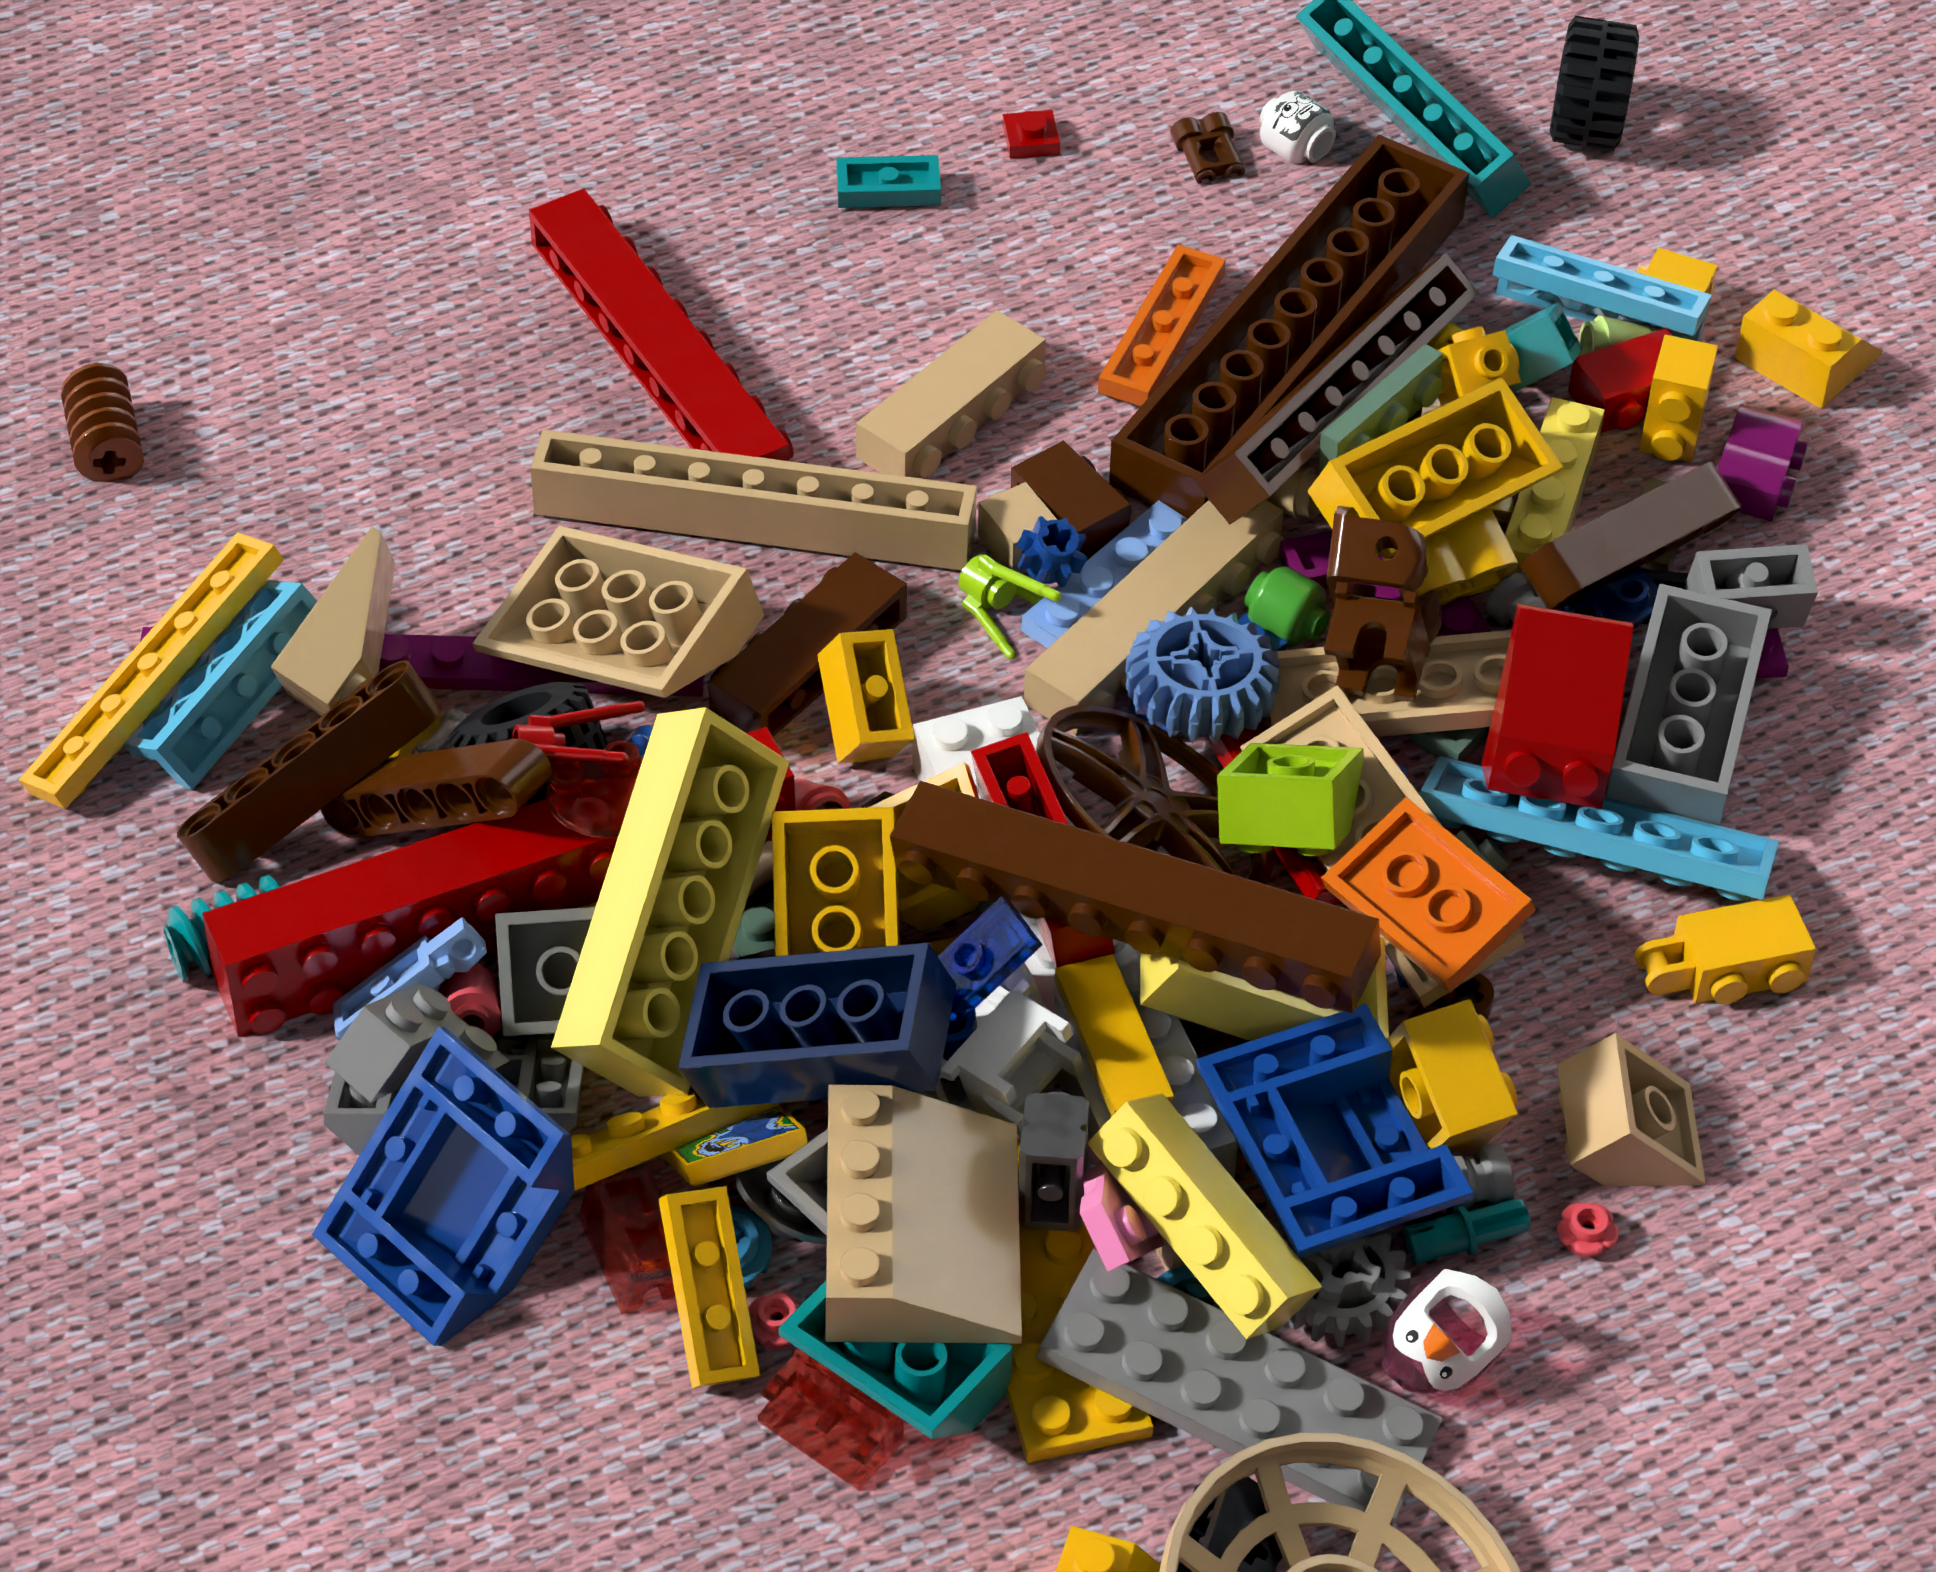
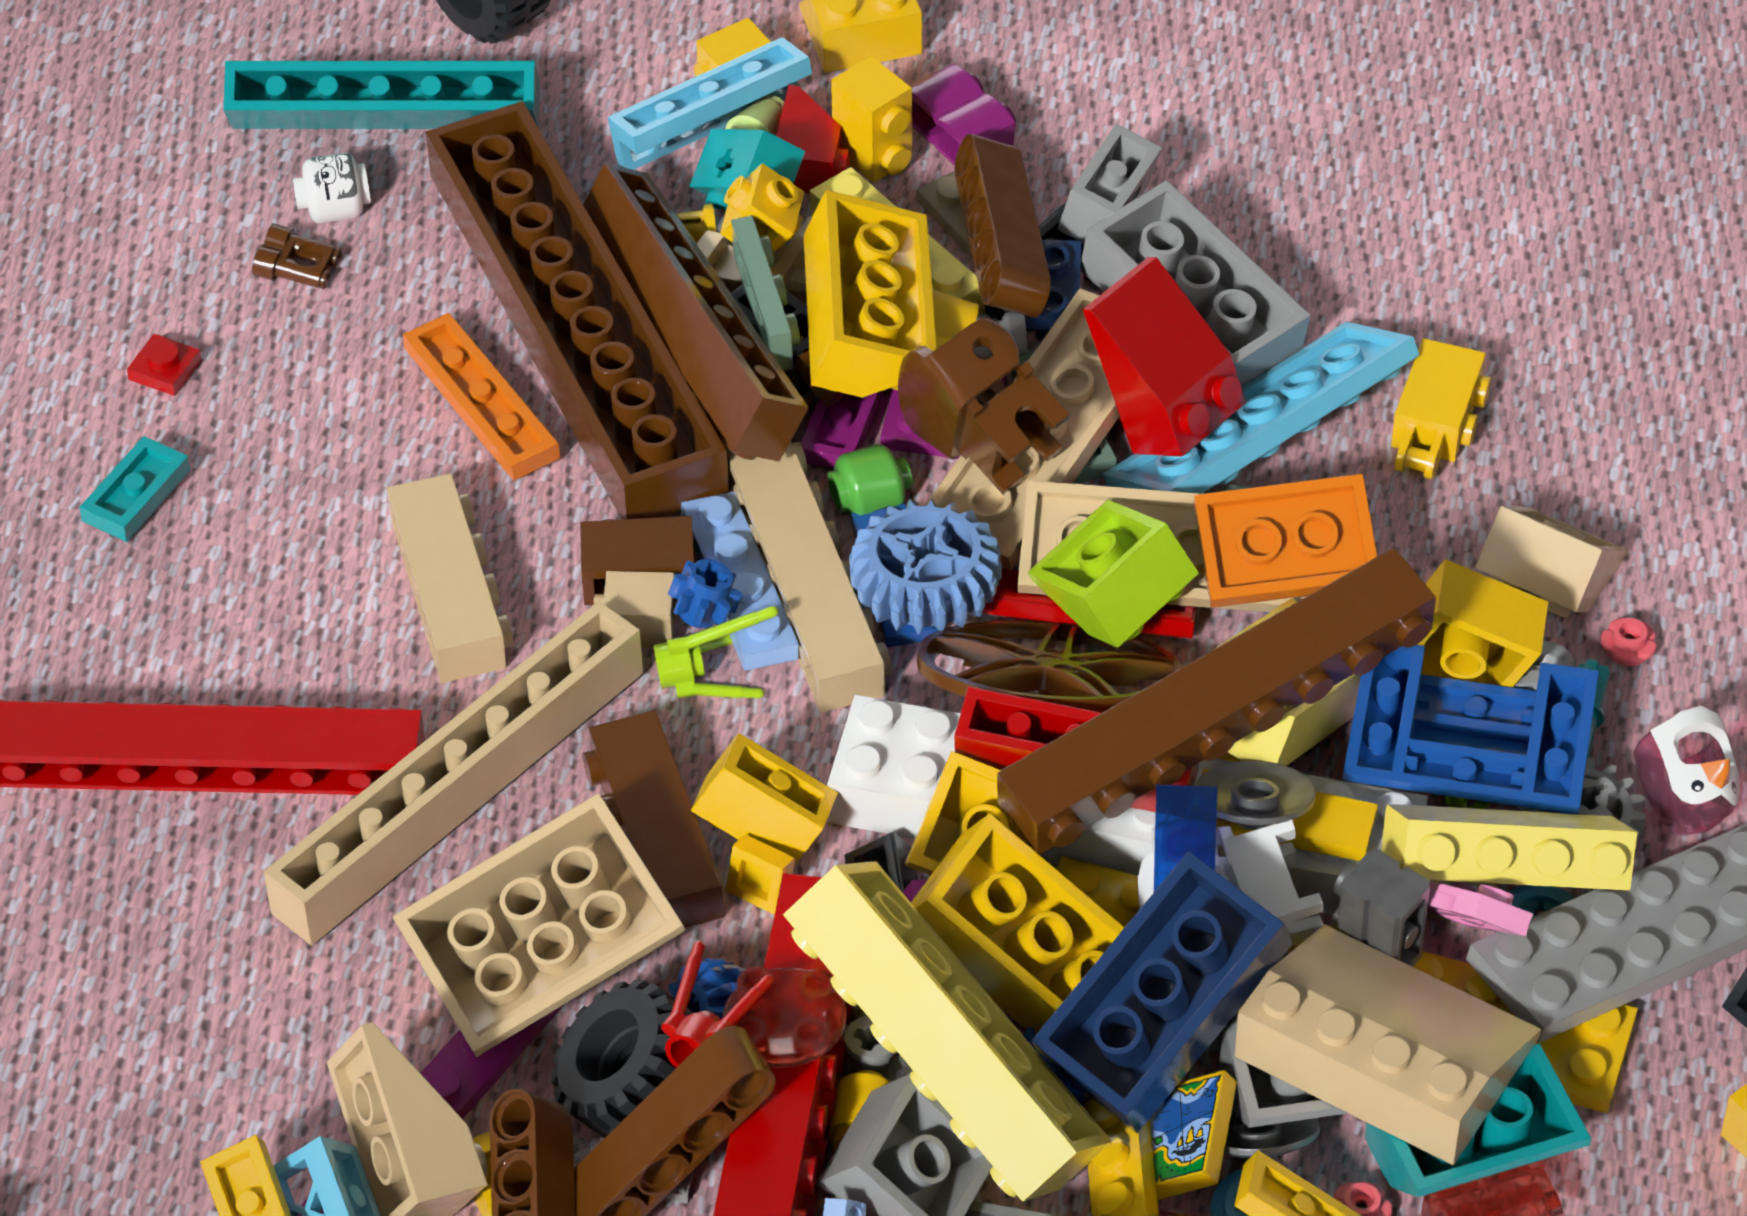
camera: 55 degrees left, 0 degrees up
(809, 739) = (757, 872): none -> yellow plate
(1090, 990) = (1259, 793): none -> flat silver dish

